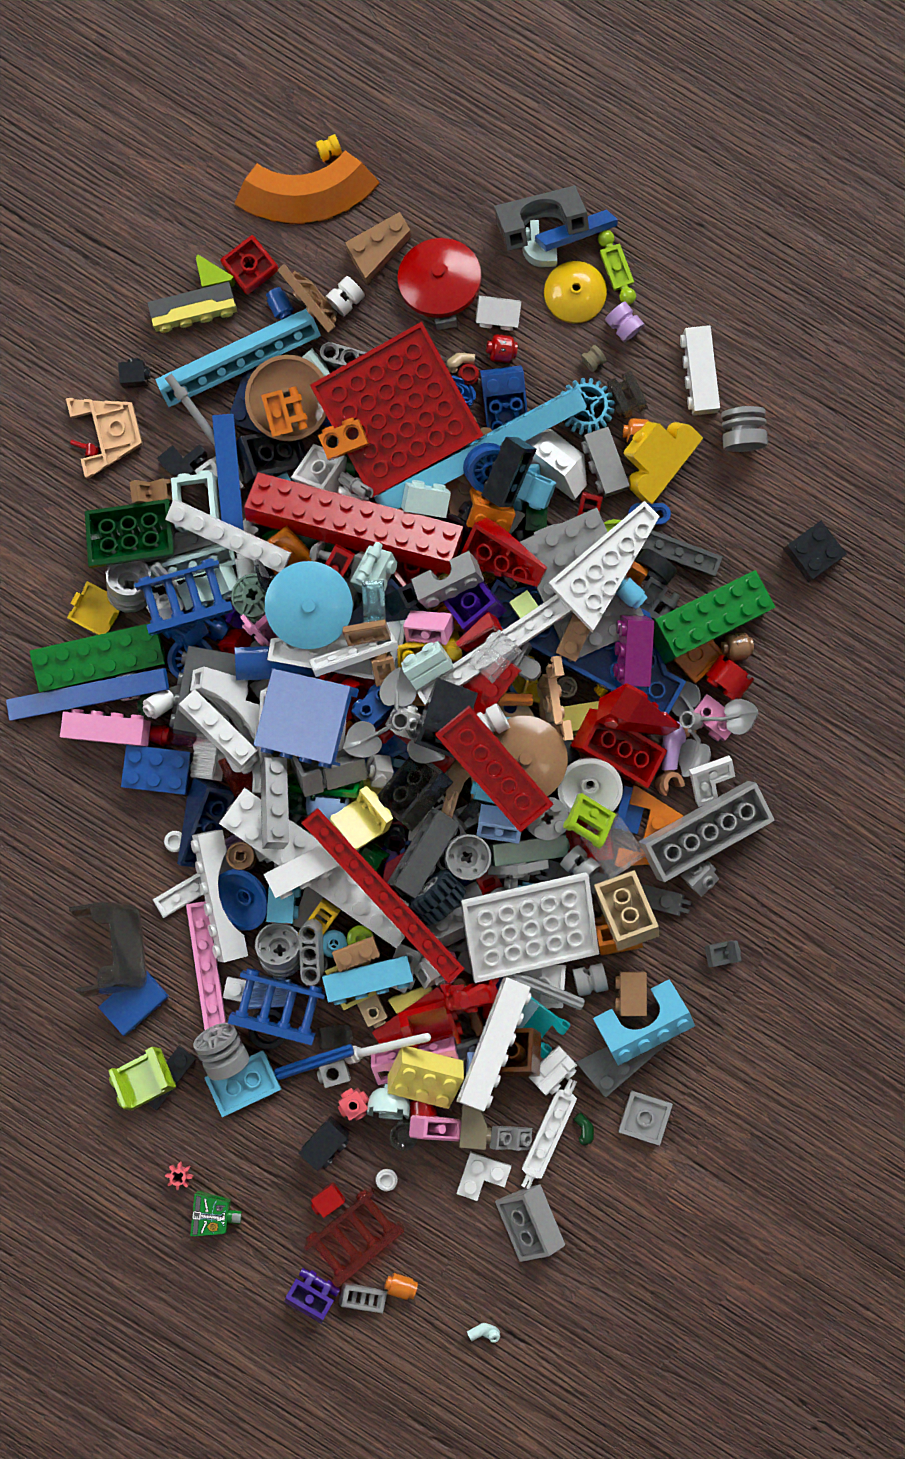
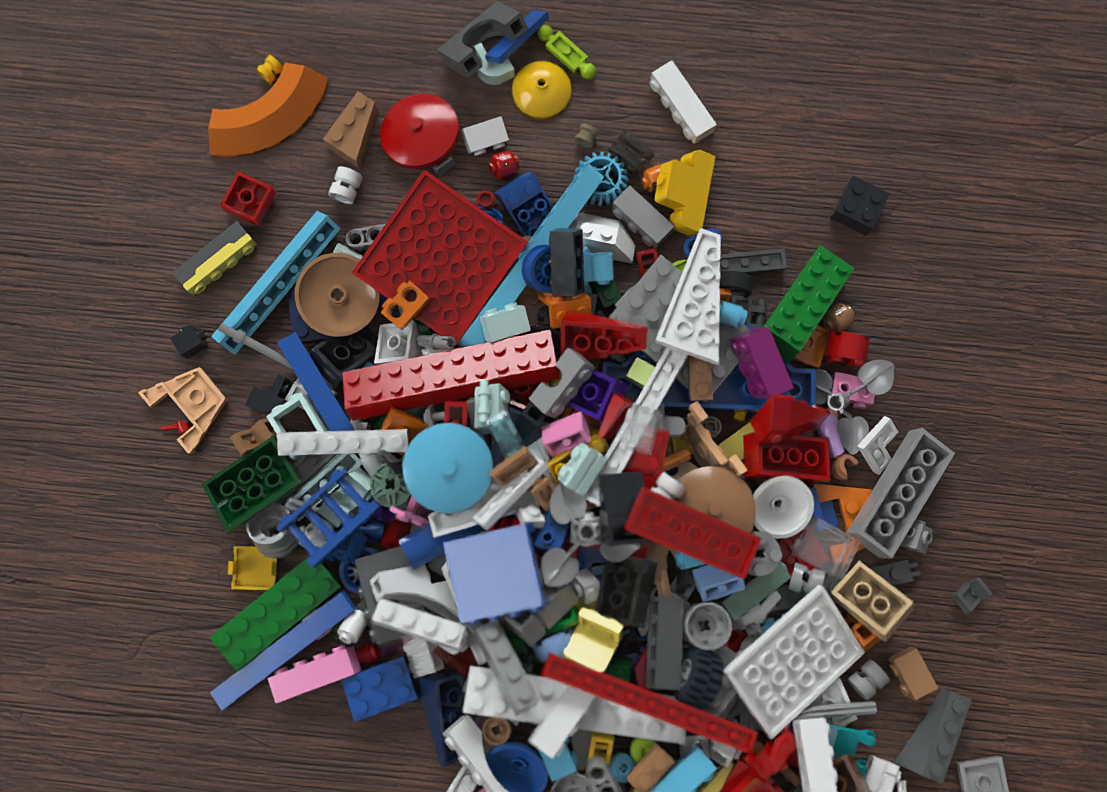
camera: 30 degrees left, 5 degrees down
(172, 841) = (426, 746): white plate -> none
(211, 274) = (219, 222): lime slope -> none
(278, 414) = (335, 312): orange plate -> none
(279, 303) = (290, 219): blue brick -> none
(308, 293) = (308, 196): medium nougat wing -> none
(362, 683) = (530, 514): none -> white plate
(458, 359) = (472, 190): tan arm -> none
(592, 814) = (798, 529): lime plate -> none
(624, 321) = (596, 92): lavender wheel -> none
(629, 1043) = (939, 723): medium azure arch -> none
(744, 425) = (746, 131): light grey wheel -> none

